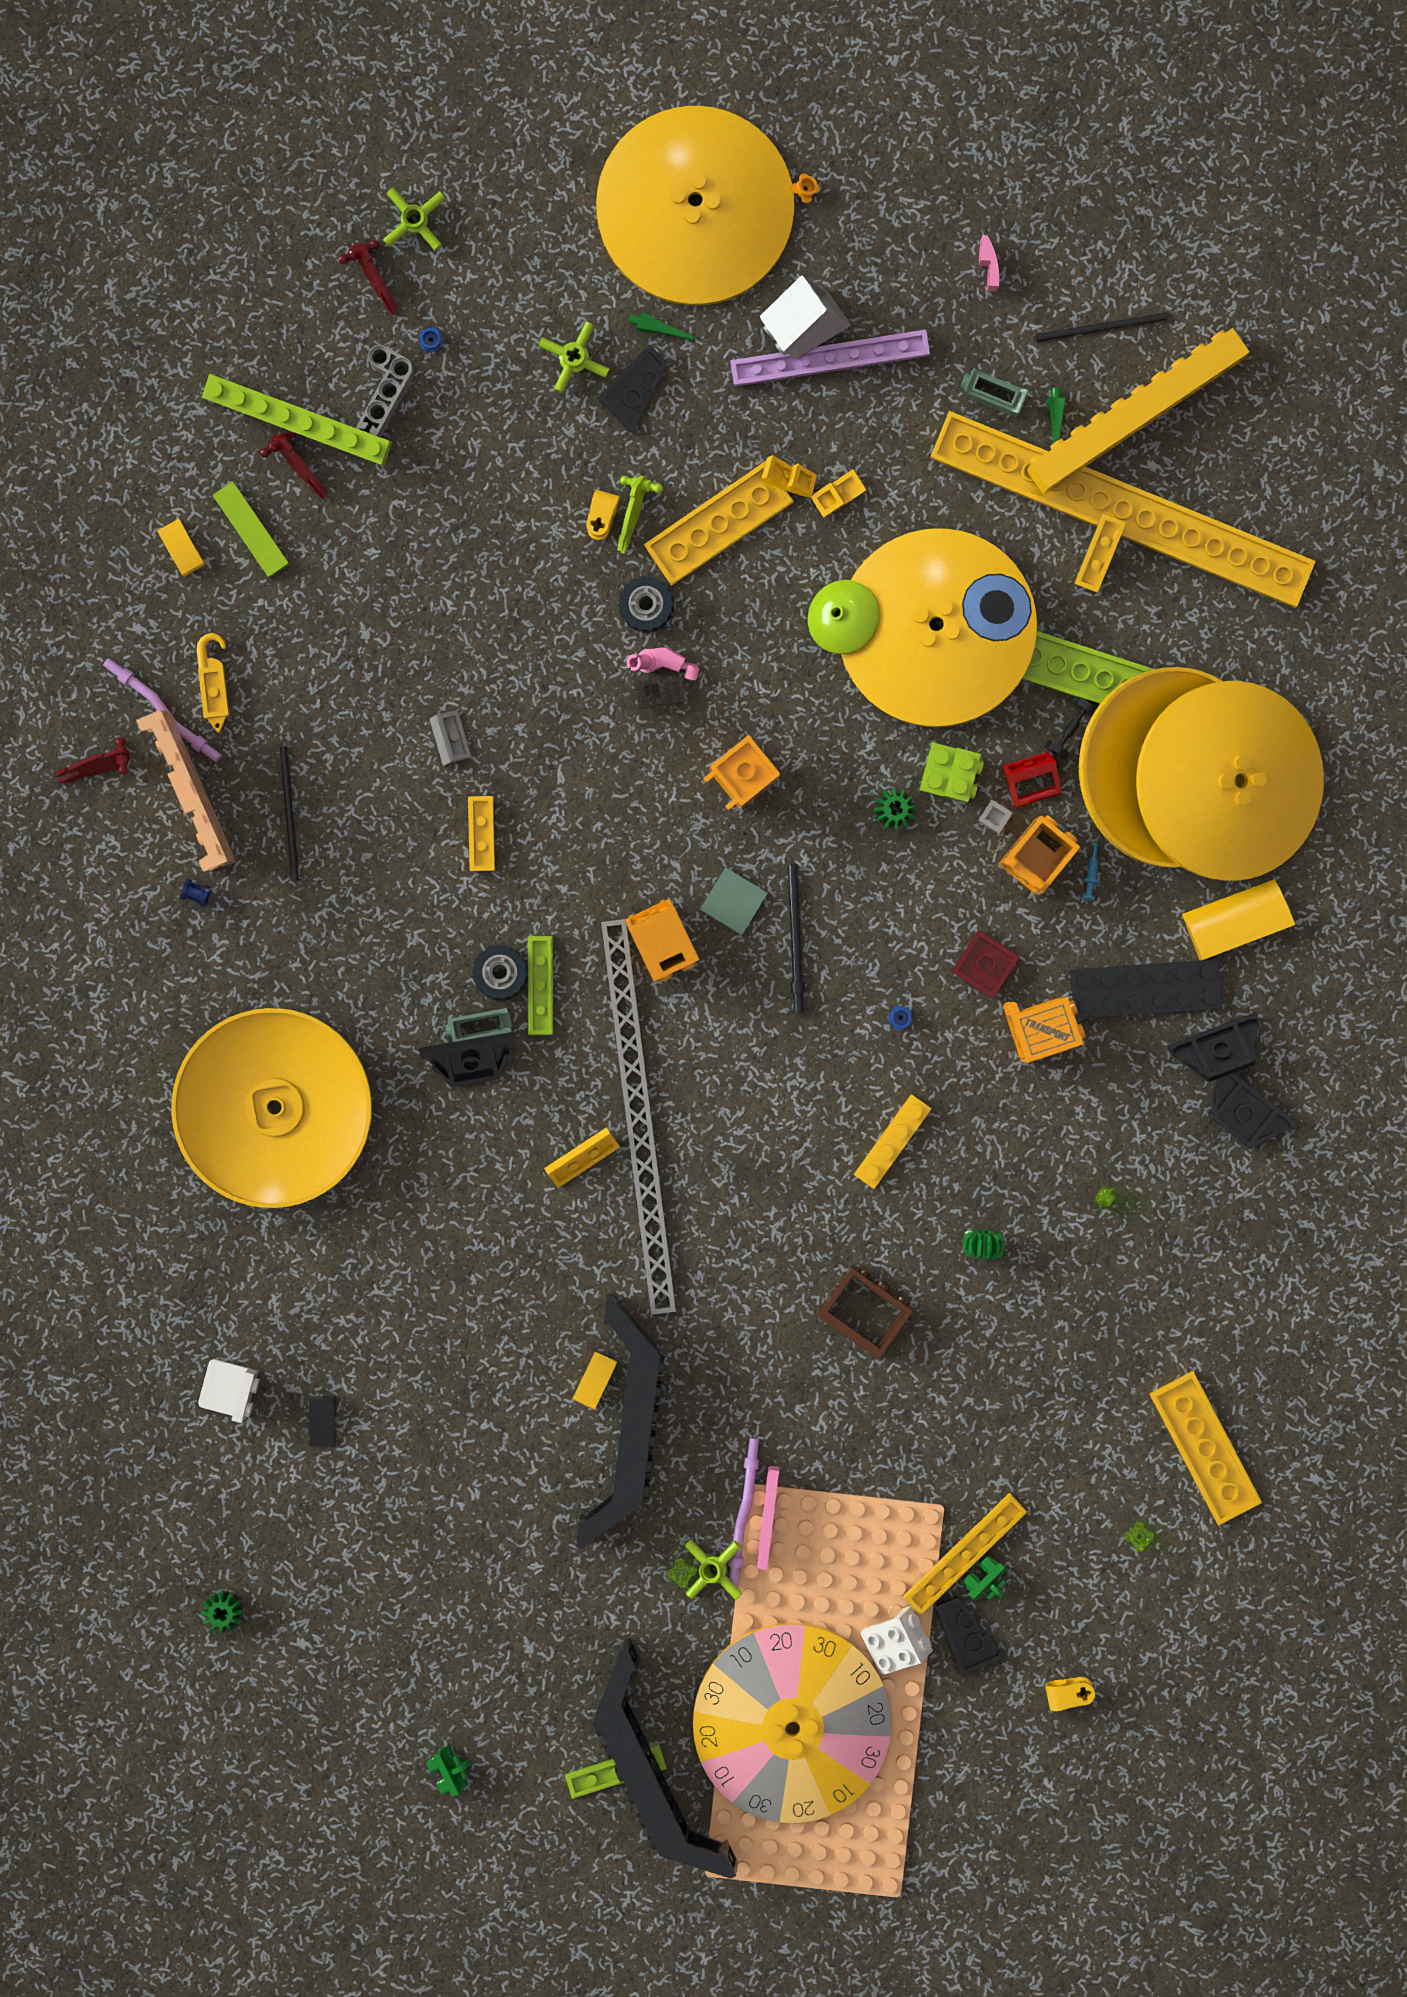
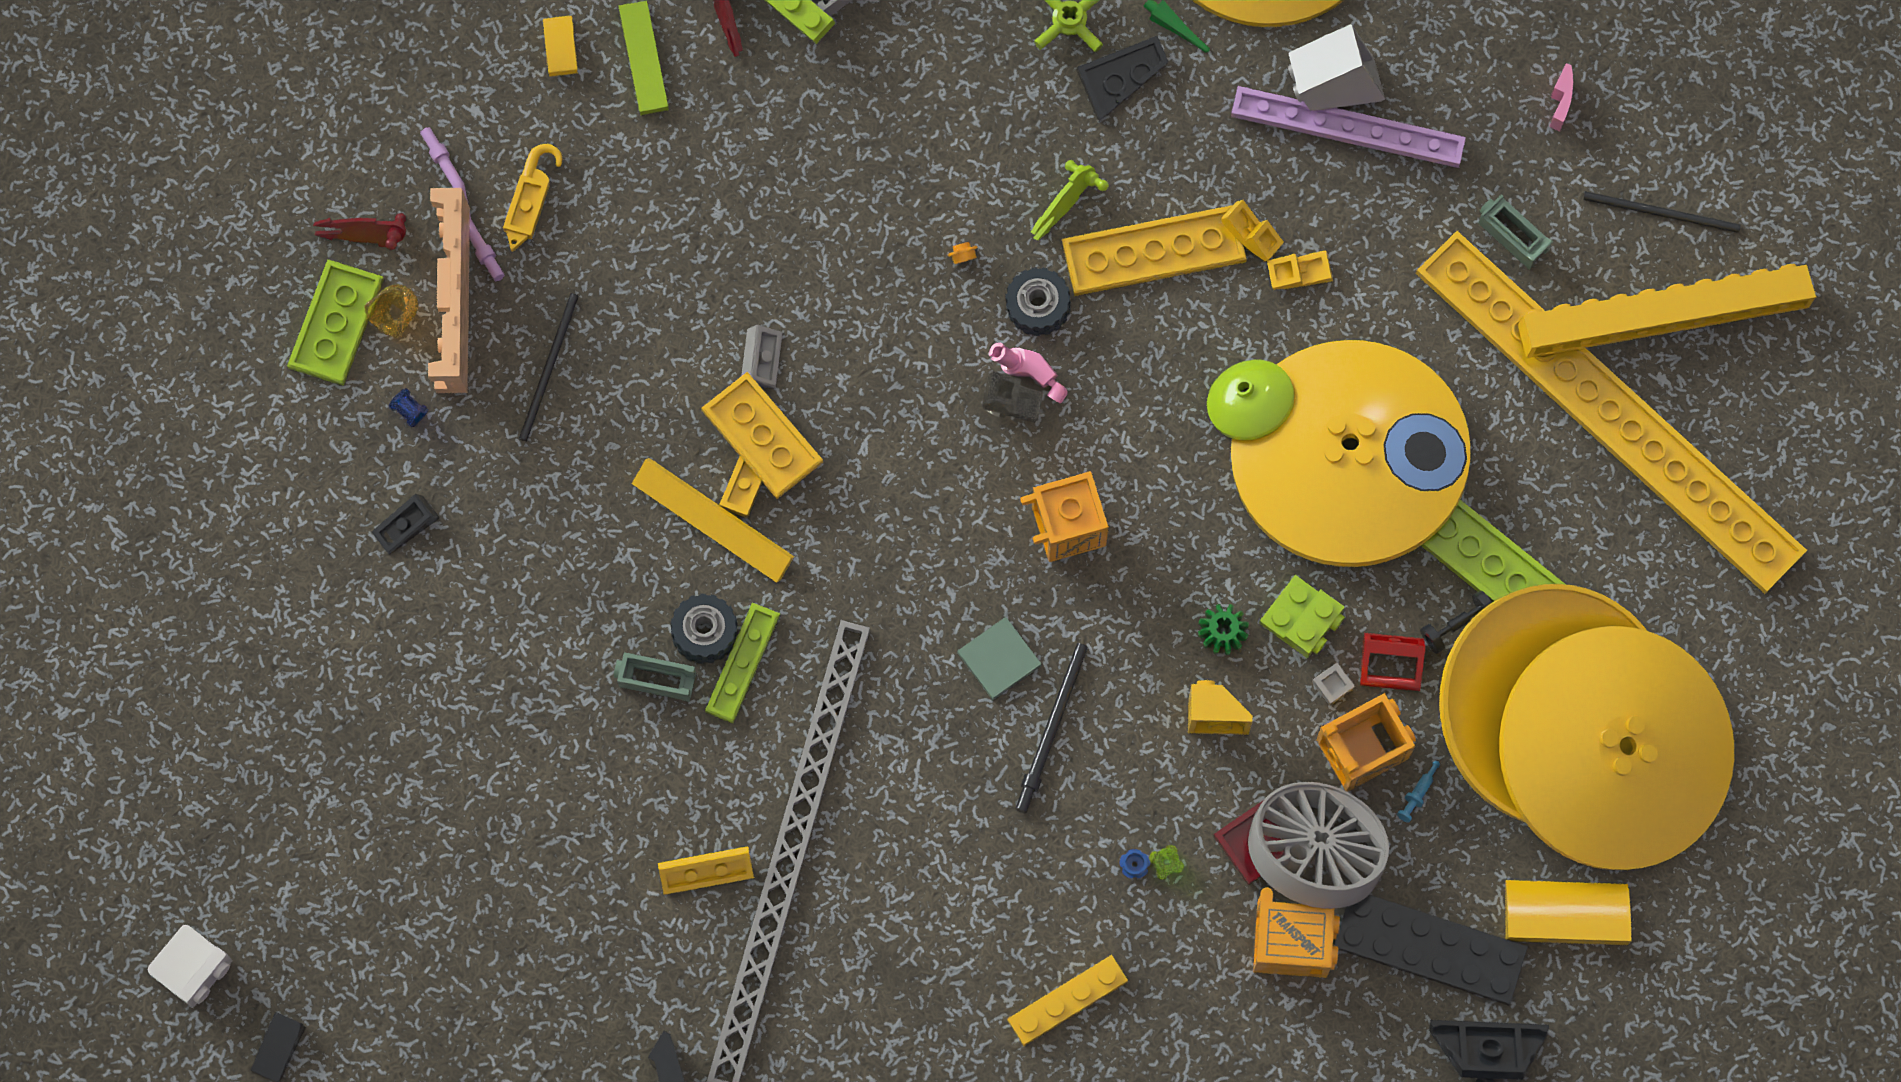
camera: 25 degrees right, 15 degrees down
(107, 846) = (334, 322): none -> lime tile
(140, 828) = (379, 307): none -> clear yellow hair
(226, 1119) = (373, 615): yellow dish -> none
(235, 983) = (406, 523): none -> black slope
(469, 884) = (713, 520): none -> yellow tile
(470, 1059) = (628, 707): black wing -> none
(479, 802) = (762, 435): none -> yellow tile
(571, 588) = (963, 252): none -> light orange plate
(602, 510) = (1033, 186): yellow piece -> none
(662, 940) = (900, 653): light orange container -> none
(915, 877) = (1216, 711): none -> yellow slope
(930, 1006) = (1168, 853): none -> clear neon green plate
(1048, 952) = (1318, 844): none -> light grey piece
(1056, 409) = (1578, 273): green piece -> none
(1100, 552) = (1565, 444): yellow plate -> none

